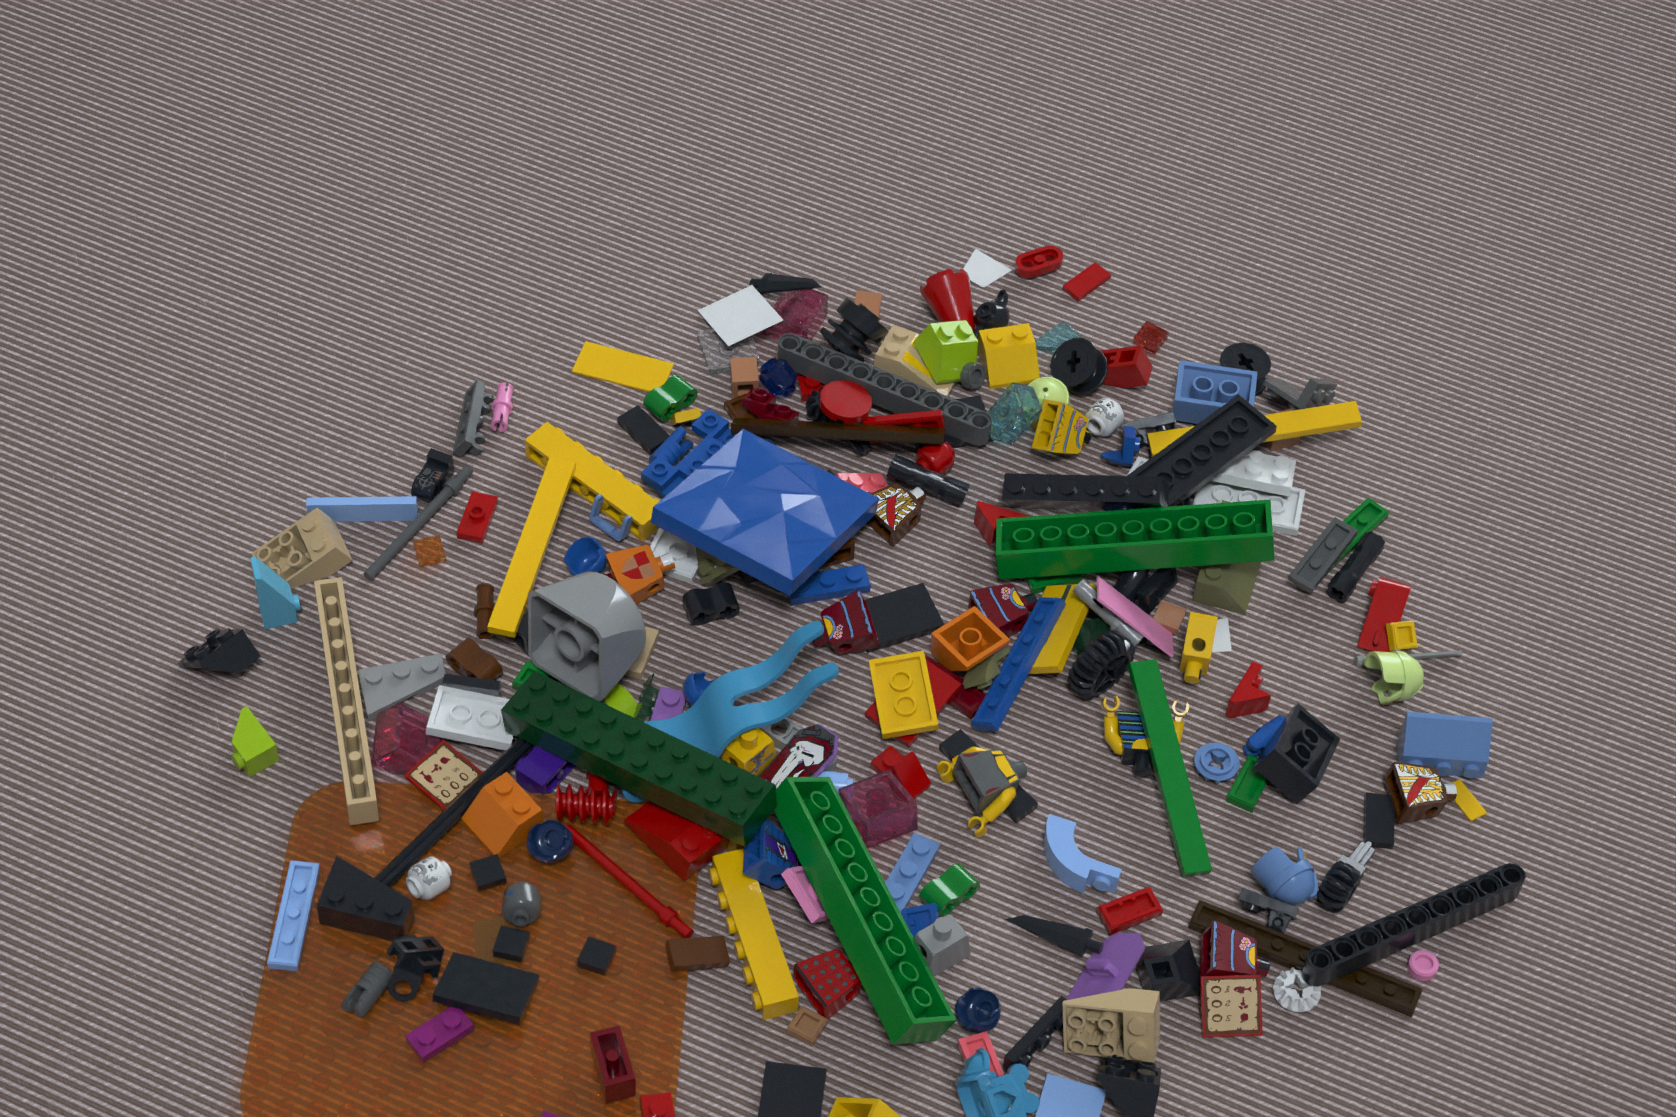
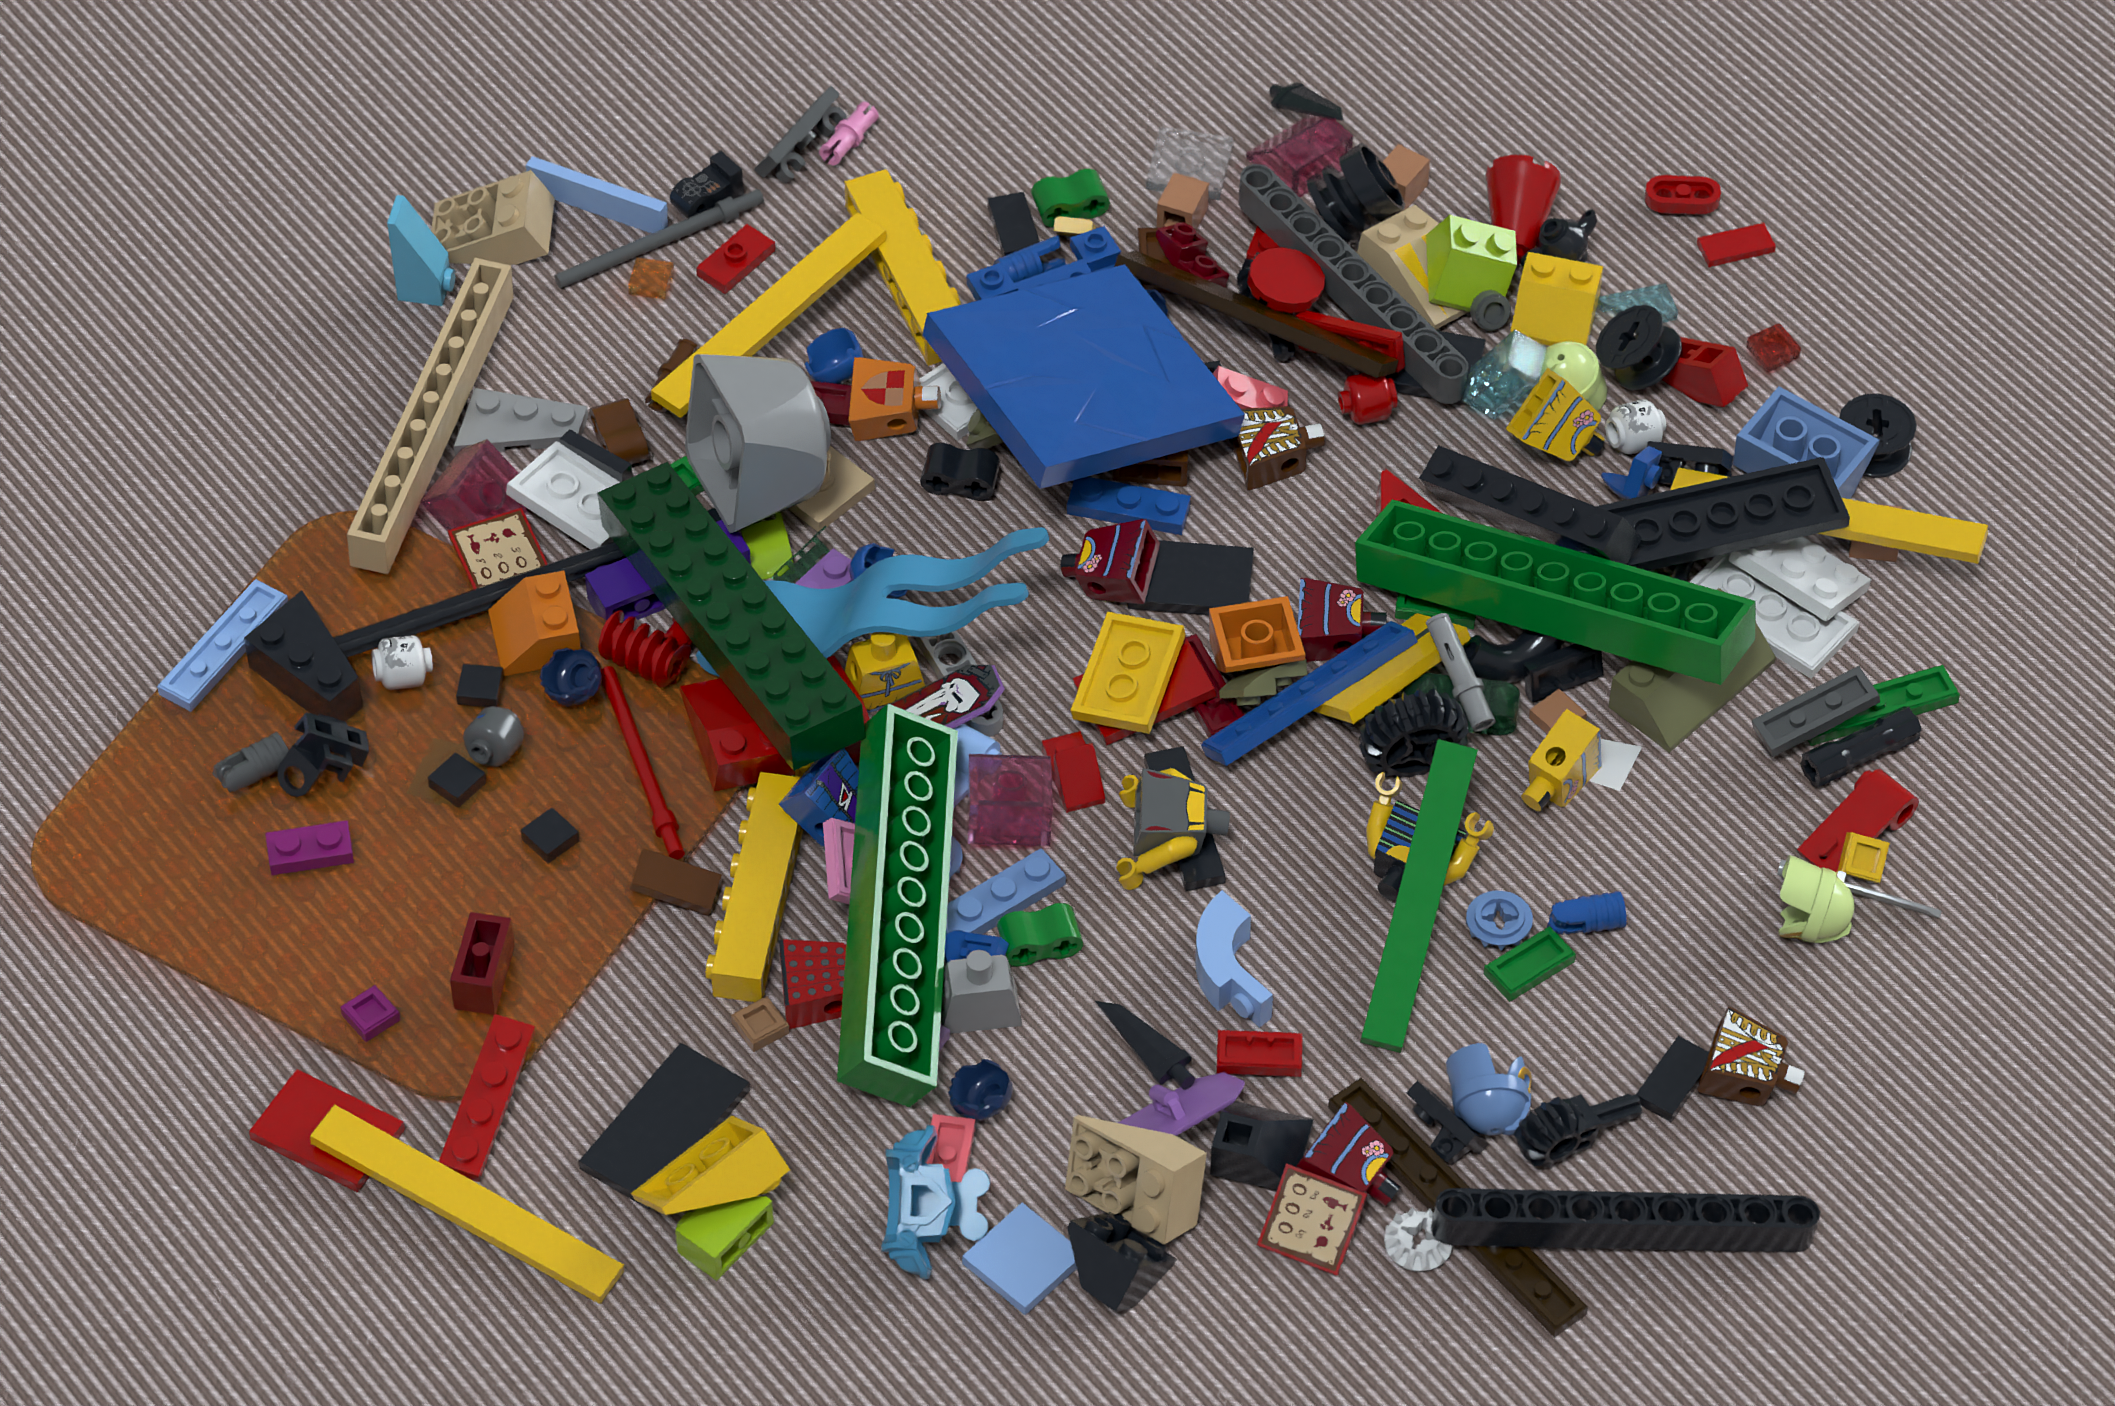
camera: 30 degrees right, 0 degrees up
(221, 652) = (327, 309): black slope -> none
(252, 745) = (293, 428): lime slope -> none
(486, 988) = (392, 817): black tile -> none
(604, 525) = (897, 341): medium blue piece -> none
(621, 367) = (1036, 137): yellow piece -> none
(740, 315) = (1226, 124): white sticker -> none
(778, 377) = (1225, 220): clear blue head -> none
(910, 473) = (1358, 438): black axle -> none
(984, 269) = (1604, 180): white sticker -> none
(1037, 1037) = (1026, 1155): black tile -> none
(1135, 616) = (1494, 689): bright pink piece -> none
(1247, 696) = (1595, 849): red slope -> none
(1297, 754) = (1609, 947): black slope -> none
(1315, 394) = (1934, 492): dark grey bracket -> none
(1423, 965) = (1611, 1280): bright pink tile -> none
(1446, 742) = (1822, 1014): medium blue slope -> none
(1467, 802) = (1816, 1103): yellow window -> none

